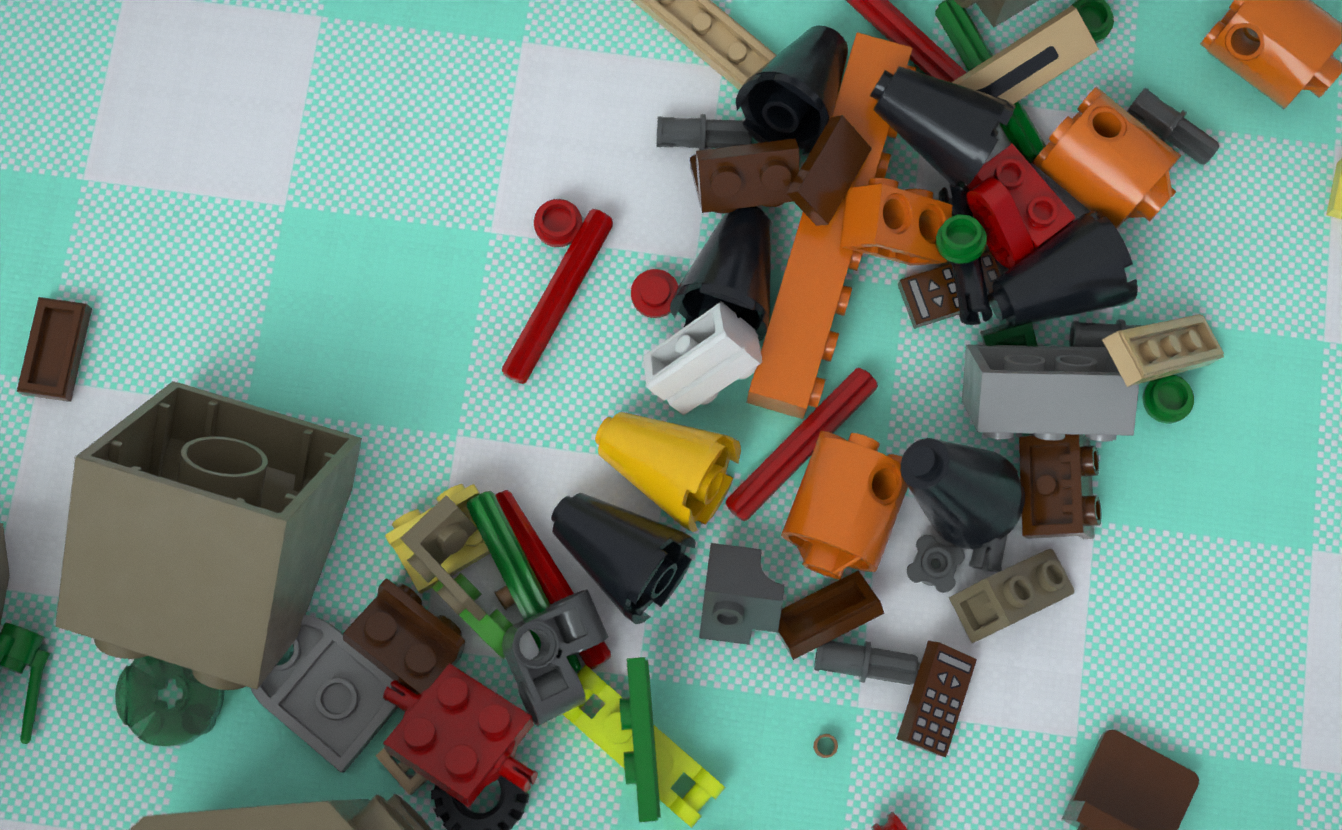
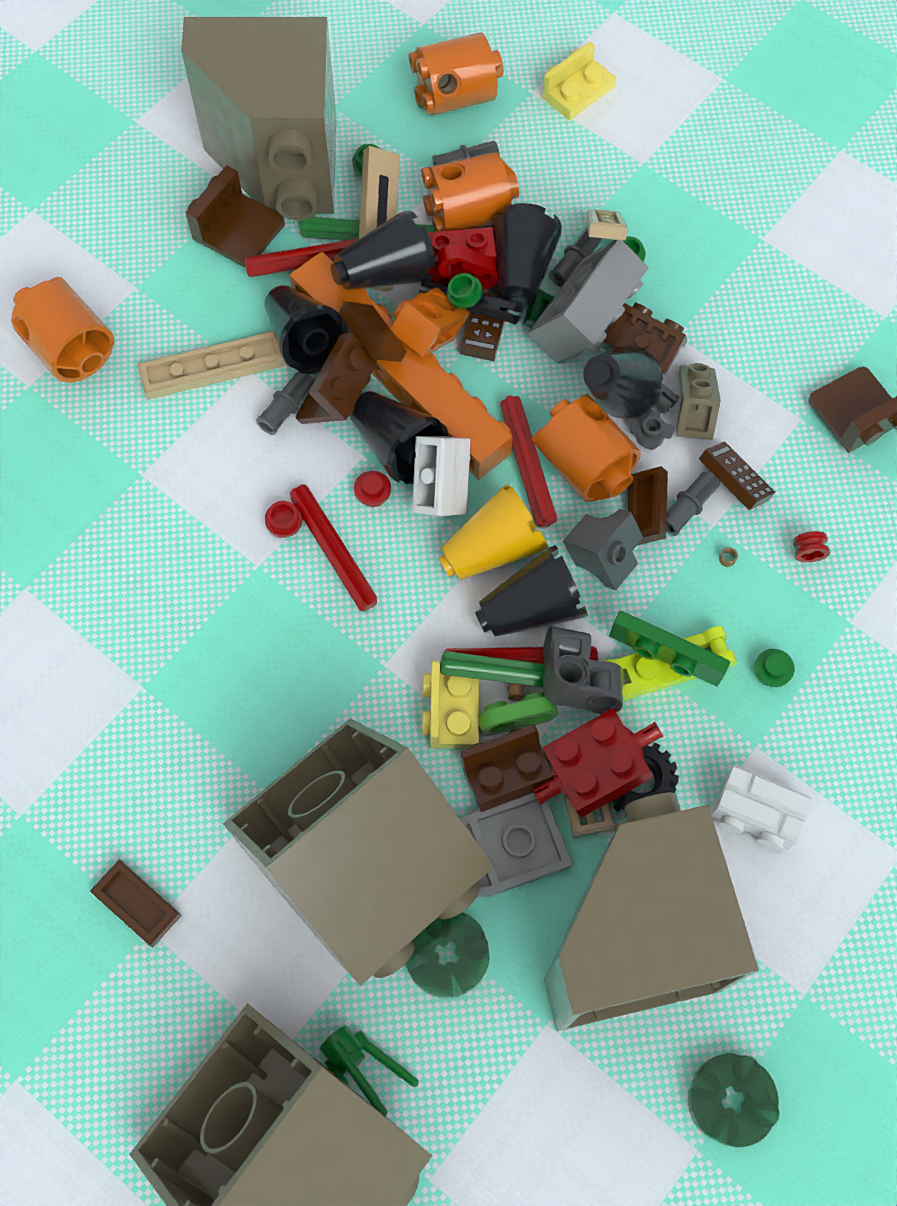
camera: 60 degrees left, 10 degrees down
(432, 541) = (456, 693): dark tan bracket -> none

